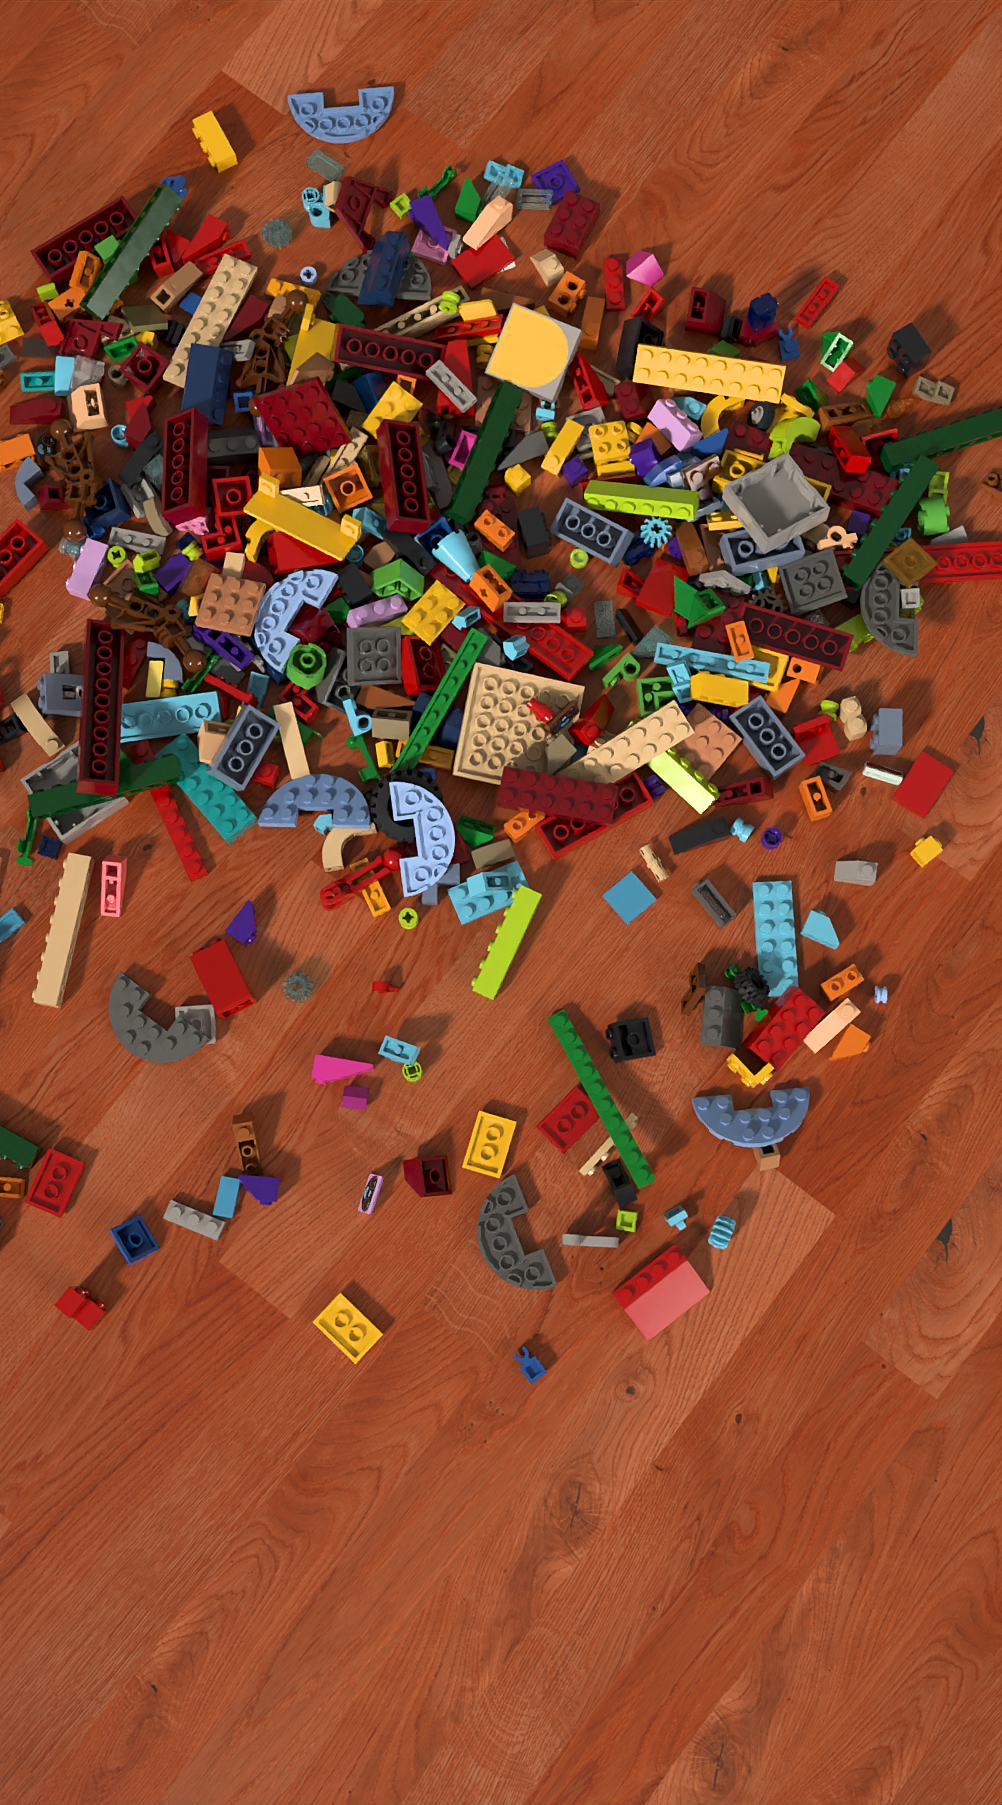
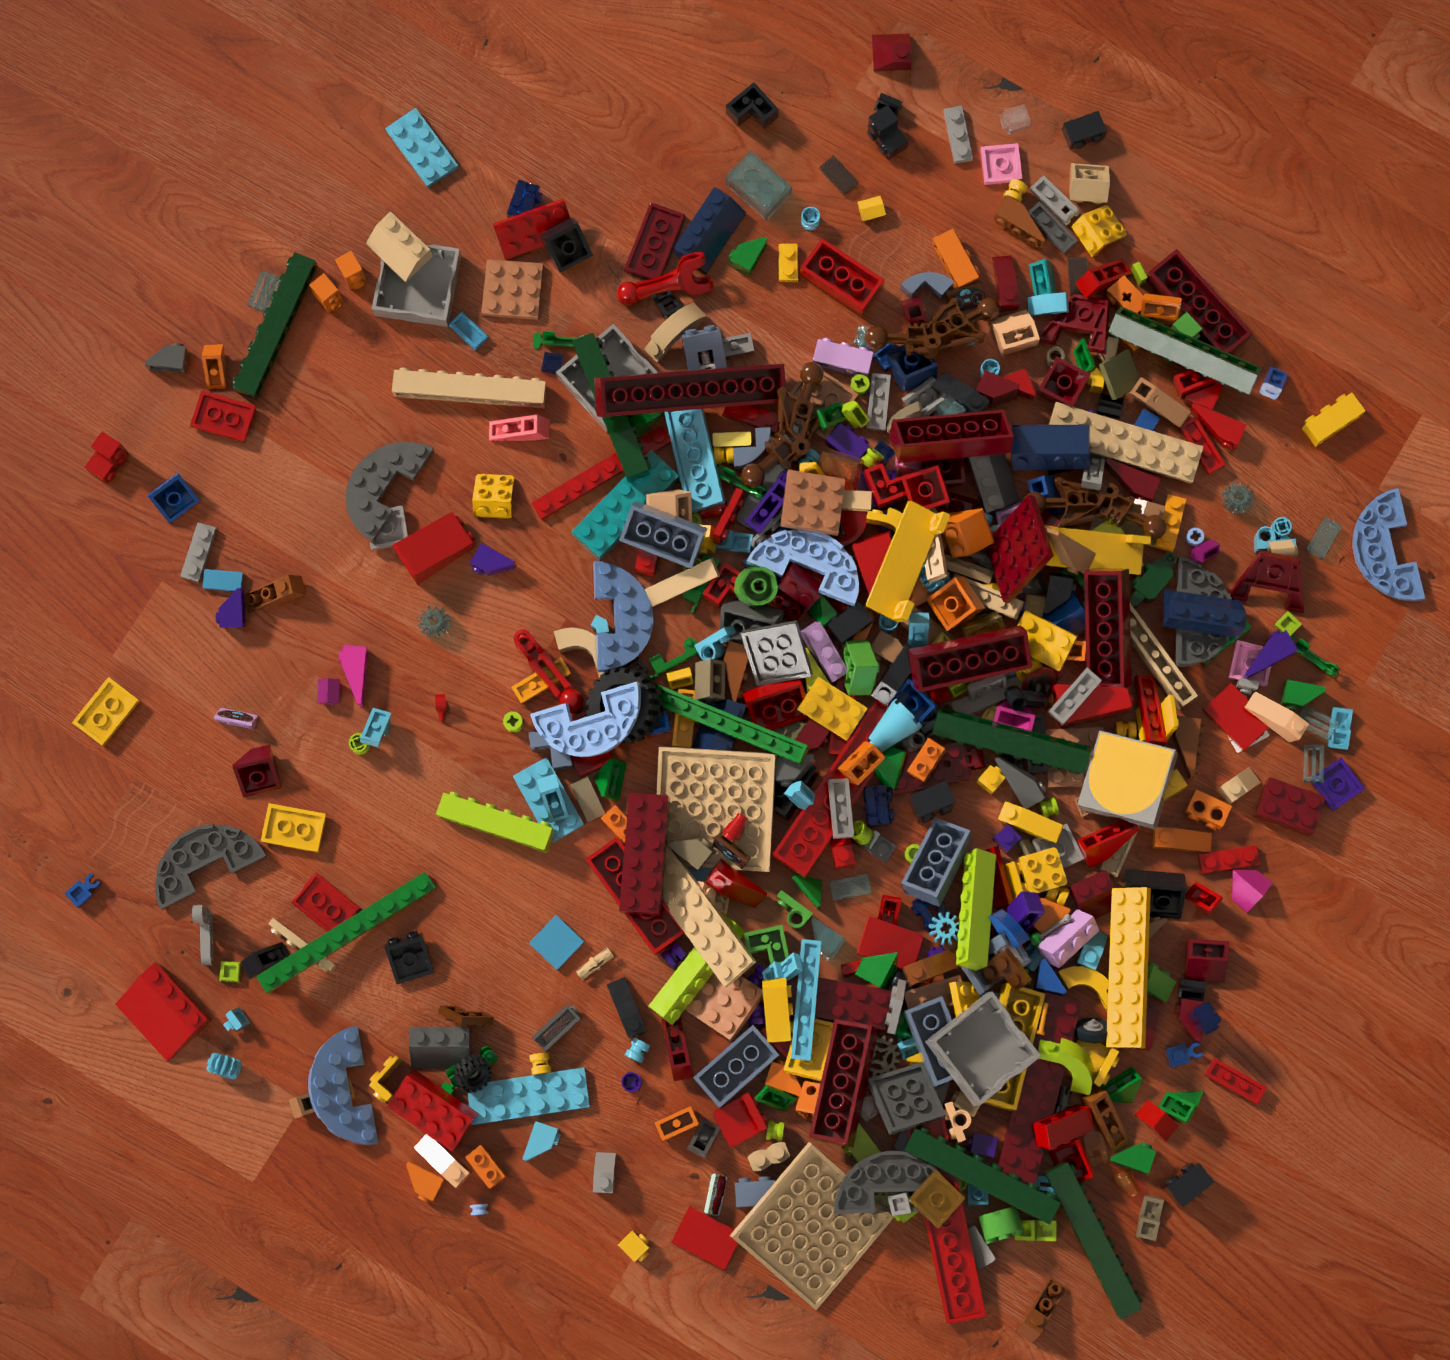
camera: 85 degrees right, 0 degrees up
(86, 372) = (1051, 324): clear slope -> none
(178, 916) = (493, 496): none -> yellow bracket
(324, 266) = (1205, 551): none -> magenta piece
(449, 302) = (1172, 684): lime wheel -> none
(460, 619) = (826, 737): medium azure piece -> none
(546, 415) = (1068, 800): medium azure tile -> none
(629, 626) = (845, 914): black slope -> none
(671, 450) = (1036, 937): none -> hinge
(705, 607) = (866, 987): green slope -> none
(739, 641) = (828, 1025): orange plate -> none
(746, 923) = (540, 1058): none -> yellow wheel
(798, 706) = (775, 1098): none -> green slope
(927, 691) = (801, 1236): none -> tan plate

